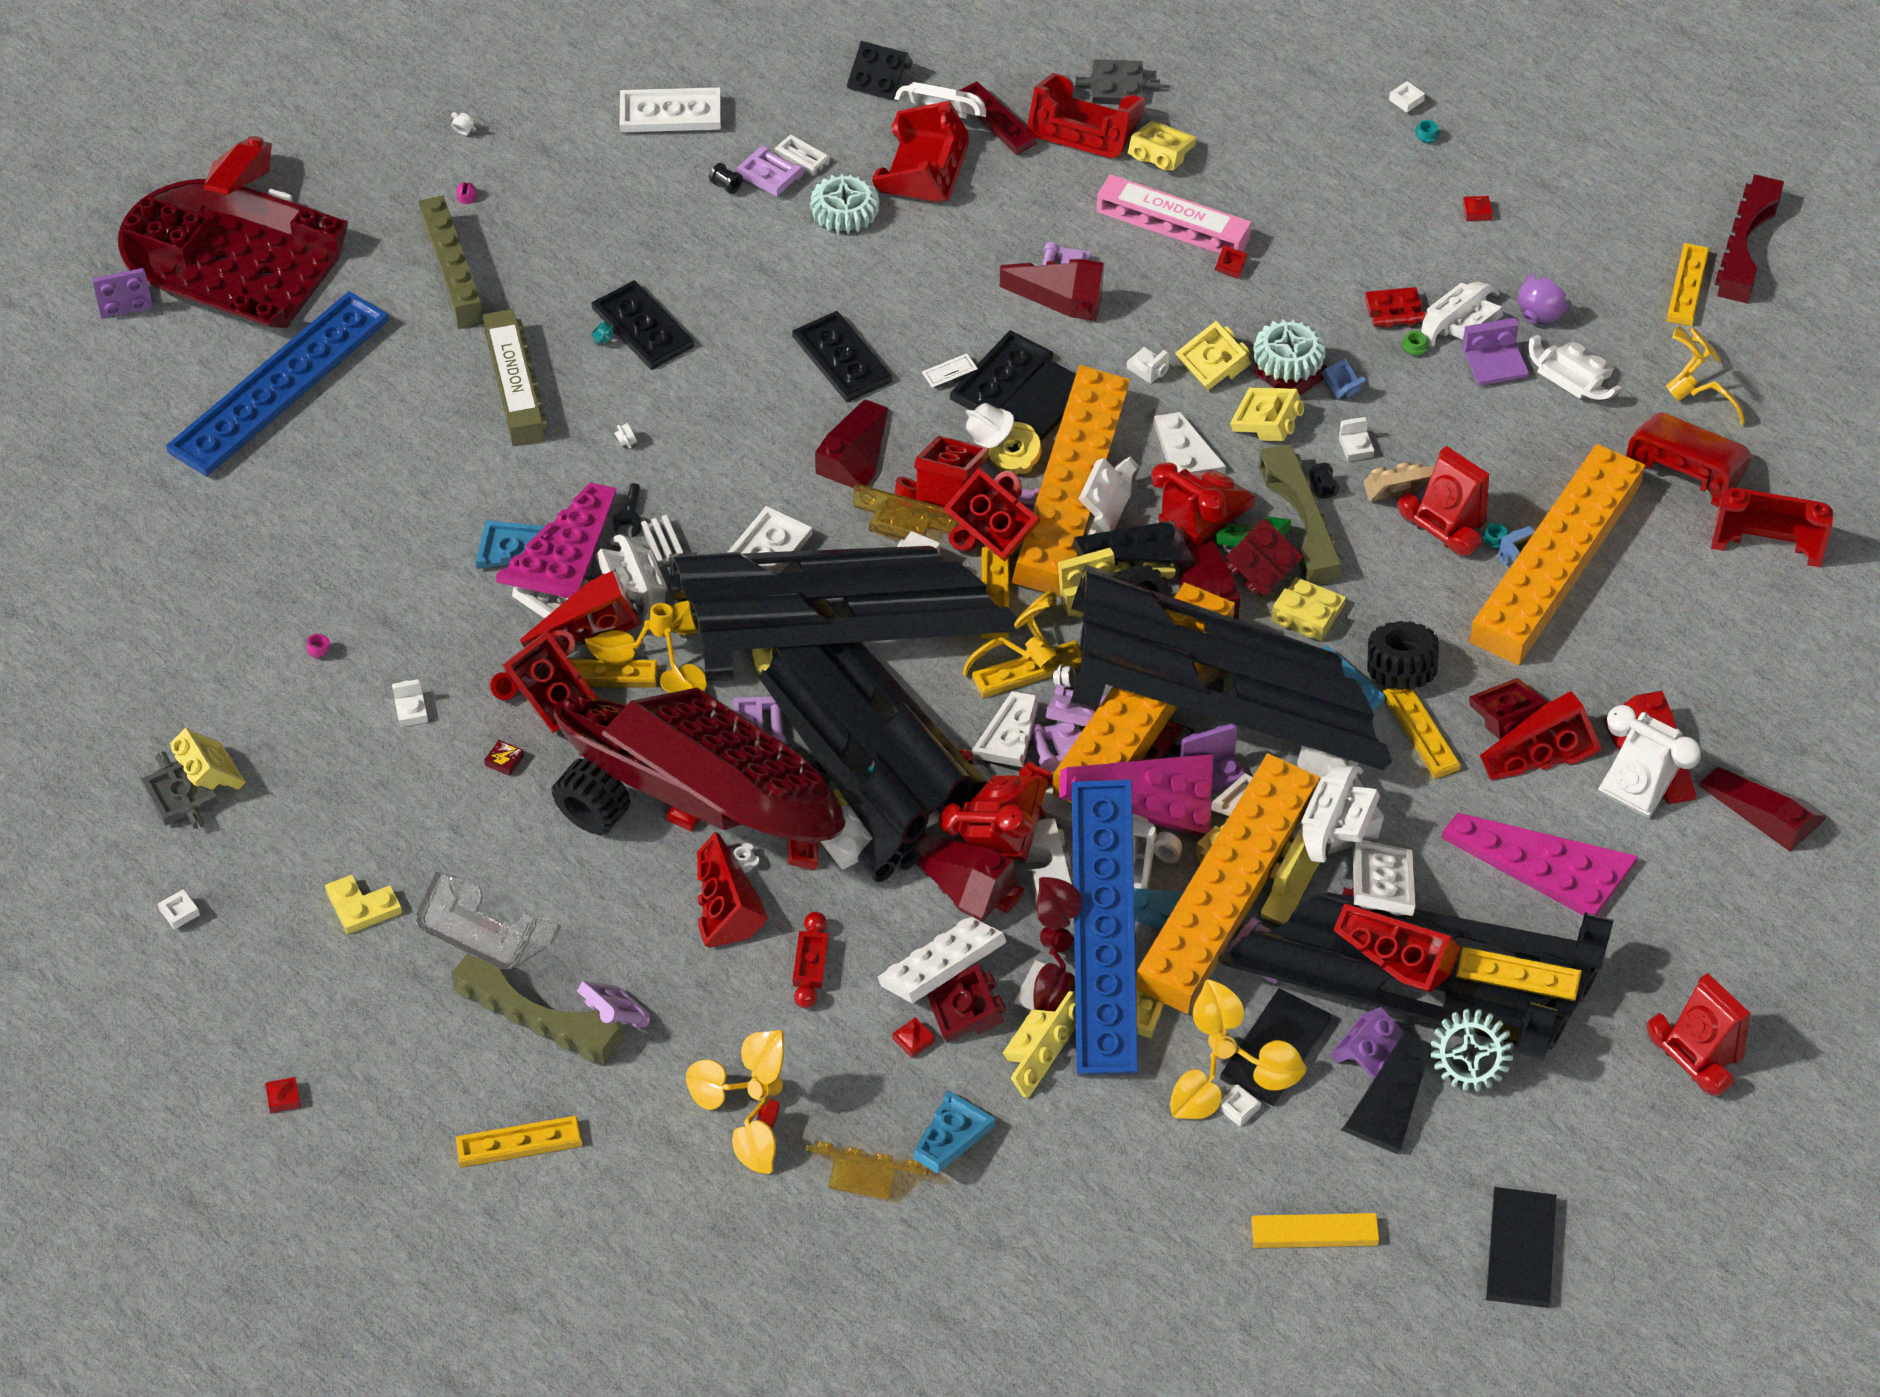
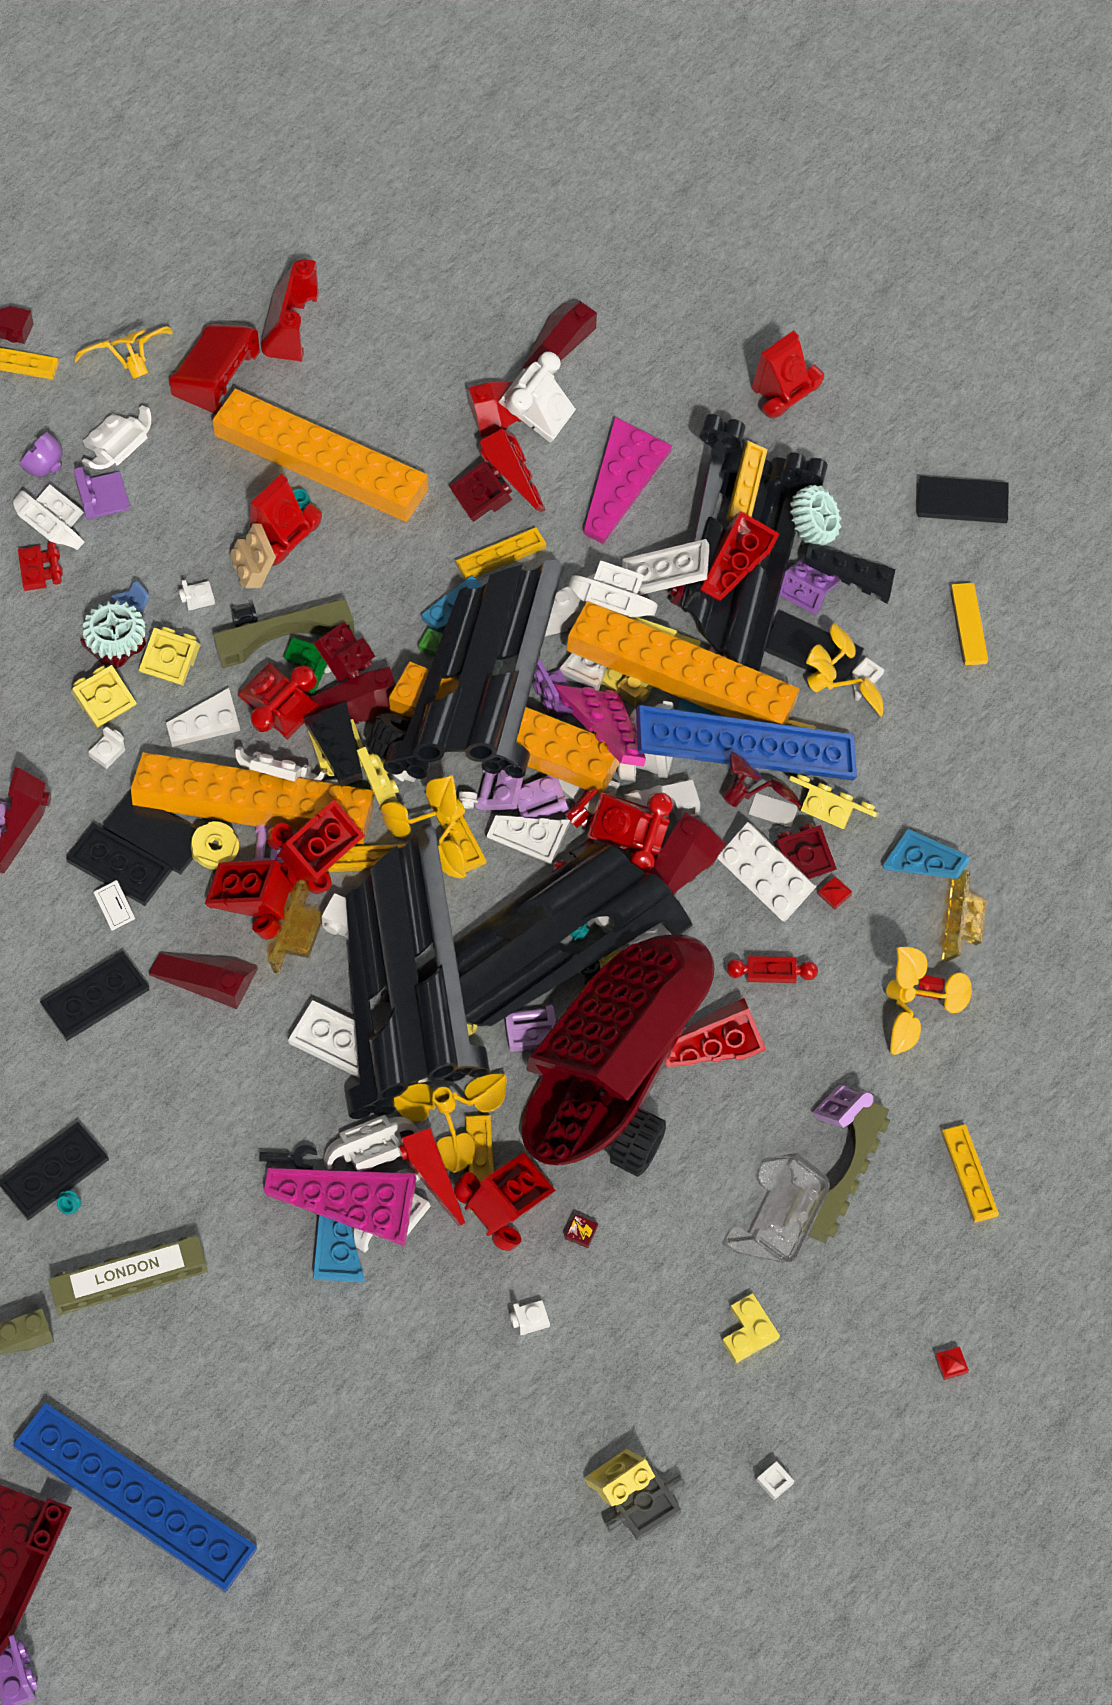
camera: 95 degrees left, 10 degrees up
(321, 645) = (466, 1403): dark pink hinge -> none
(625, 435) = (200, 1168): white plate -> none
(657, 525) = (324, 1126): white tile -> none
(989, 425) = (196, 859): white piece -> none
(1307, 608) = (383, 628): light yellow plate -> none
(1403, 655) = (431, 544): black tyre -> none
(1415, 343) = (83, 546): bright green plate -> none
(1513, 544) = (315, 488): medium blue bracket -> none

